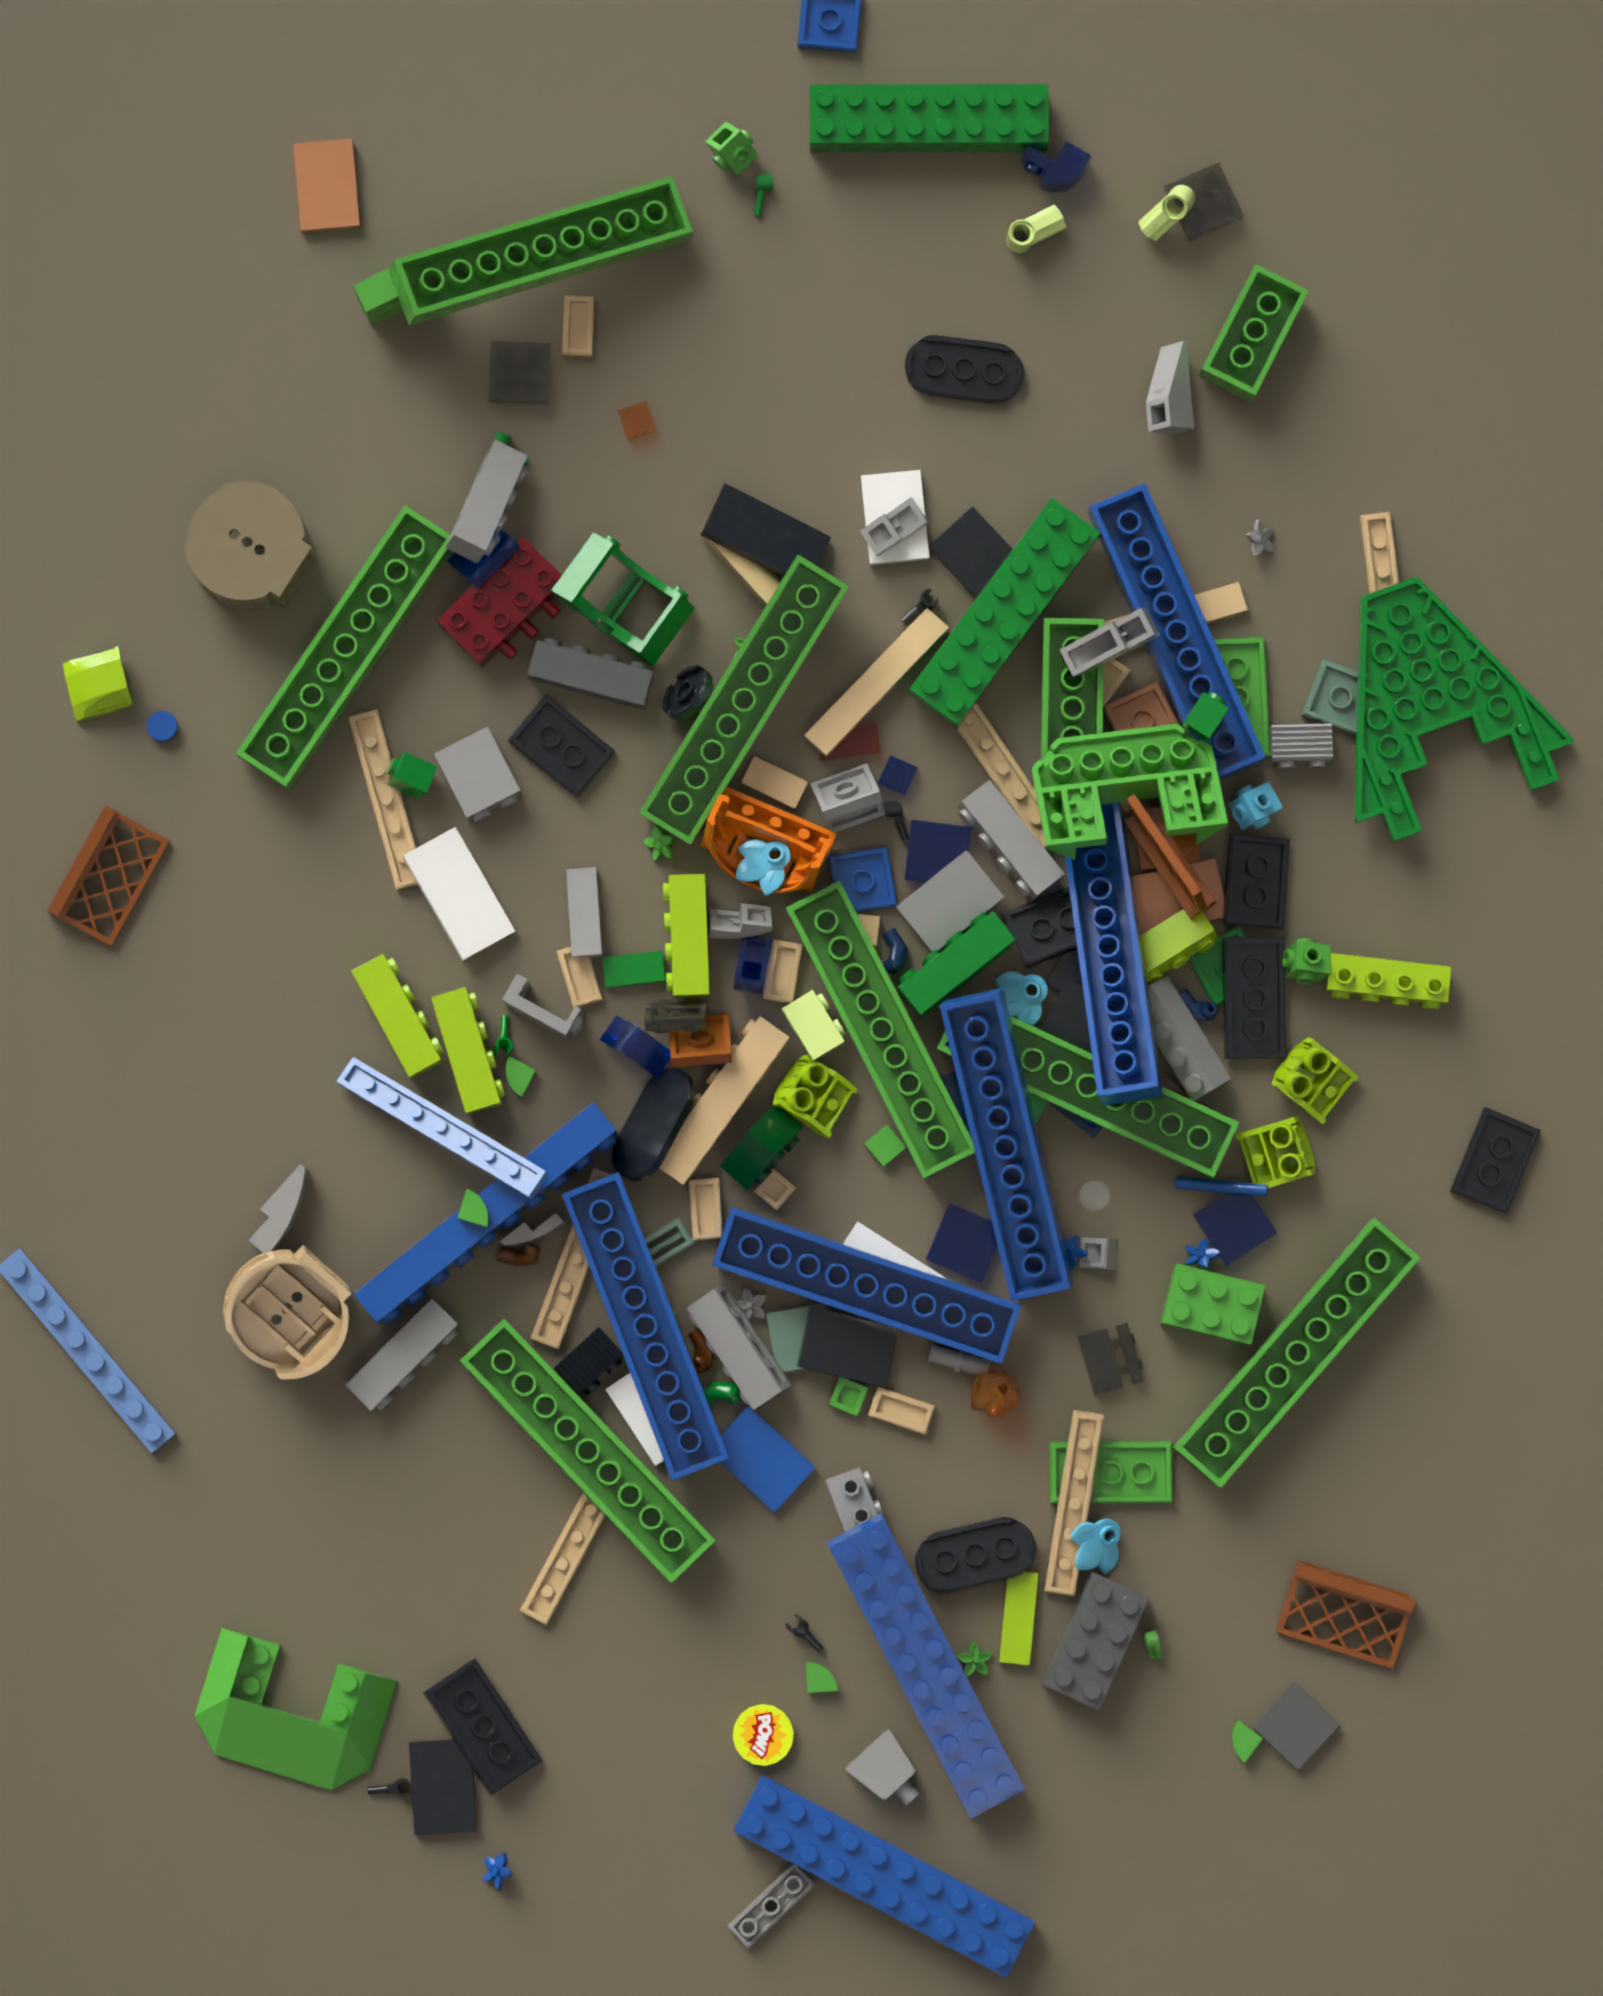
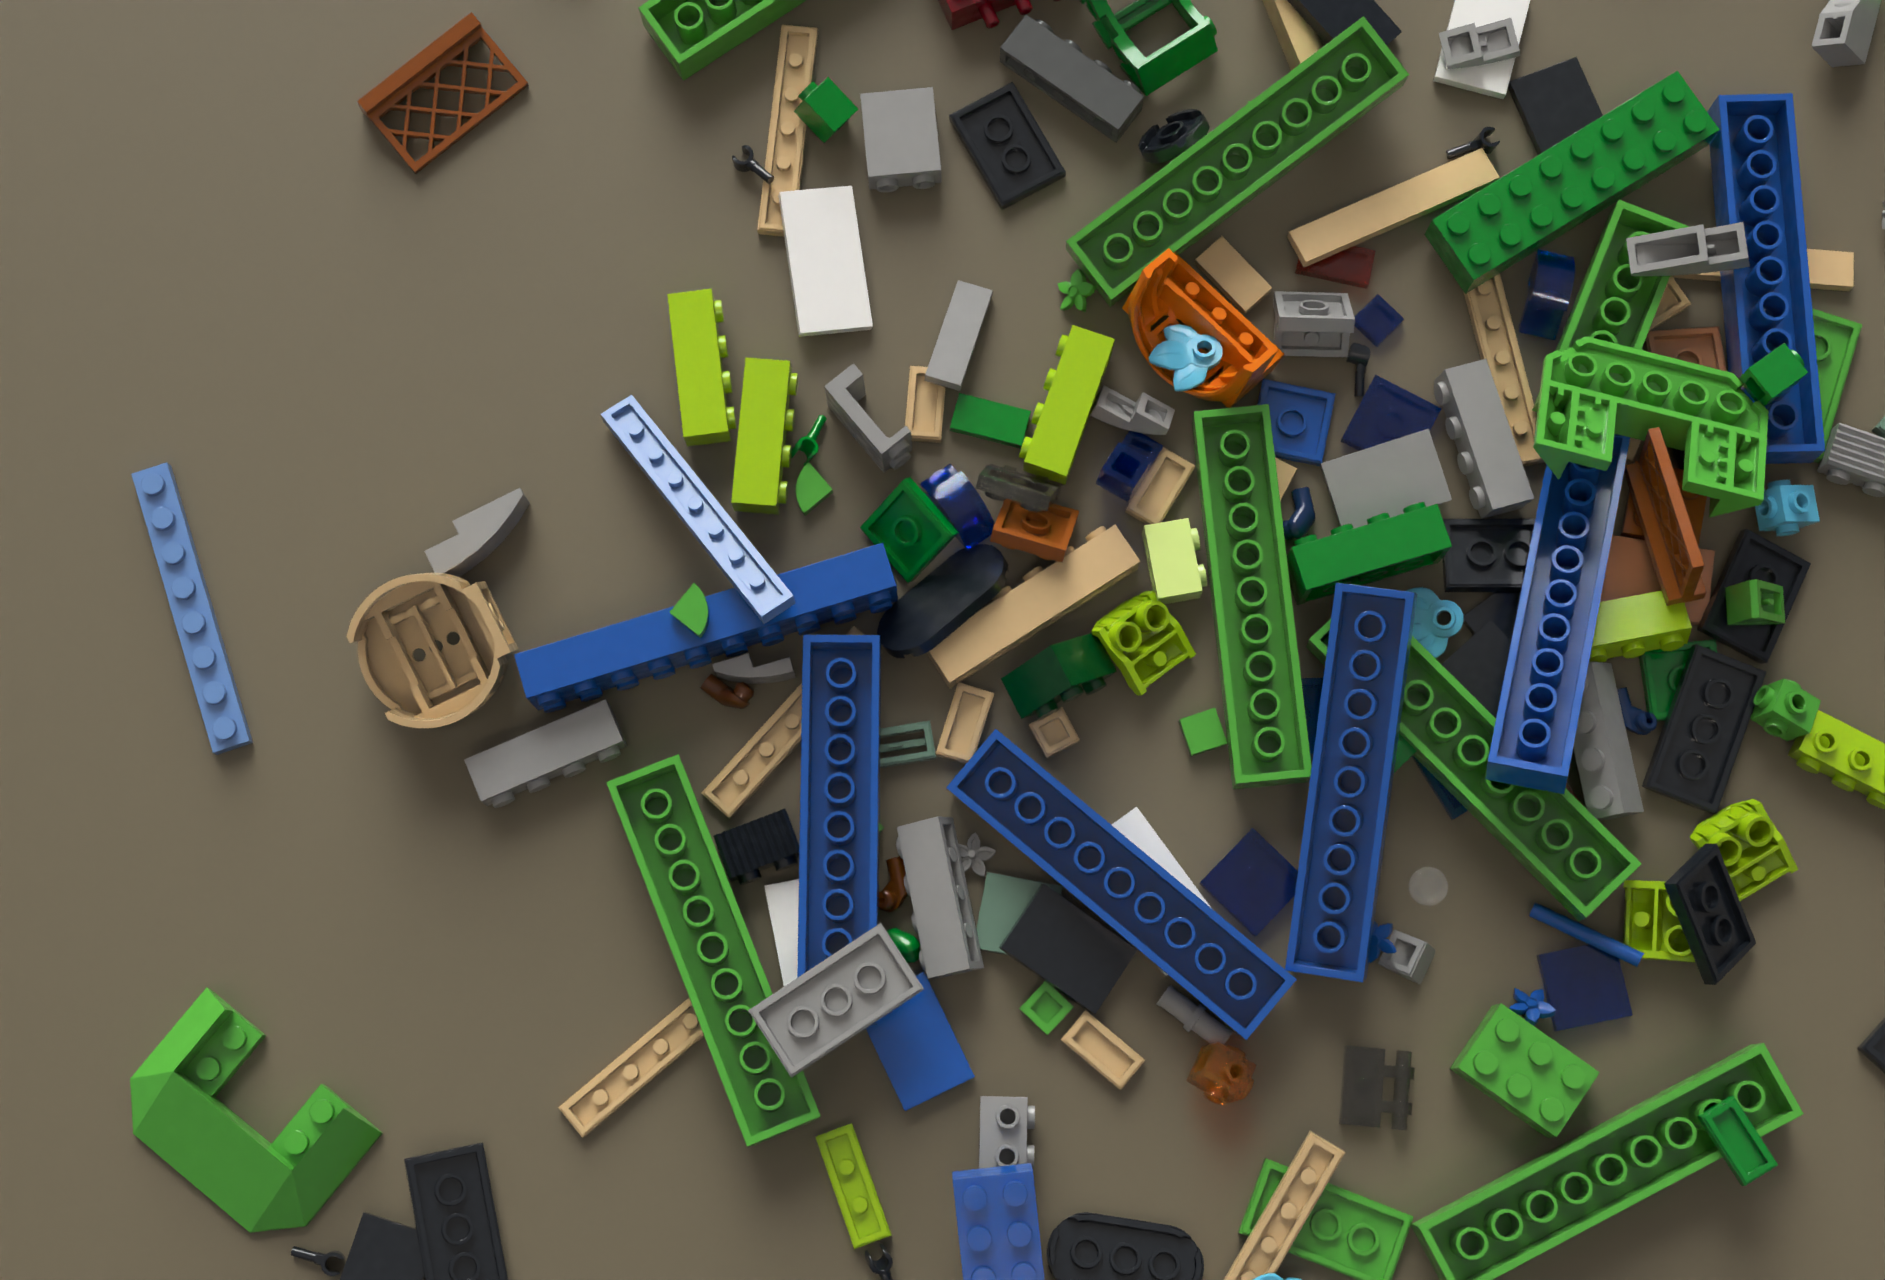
camera: 25 degrees right, 5 degrees down
(371, 839) = (752, 164): none -> black hand
(606, 1080) = (909, 529): none -> green tile
(694, 1453) = (836, 1000): none -> light grey tile
(758, 1581) = (853, 1186): none -> lime tile
(1018, 706) = (1548, 294): none -> clear blue brick
(1258, 890) = (1755, 603): none -> bright green slope
(1304, 1137) = (1710, 913): none -> black tile
(1379, 1296) = (1737, 1140): none -> green tile

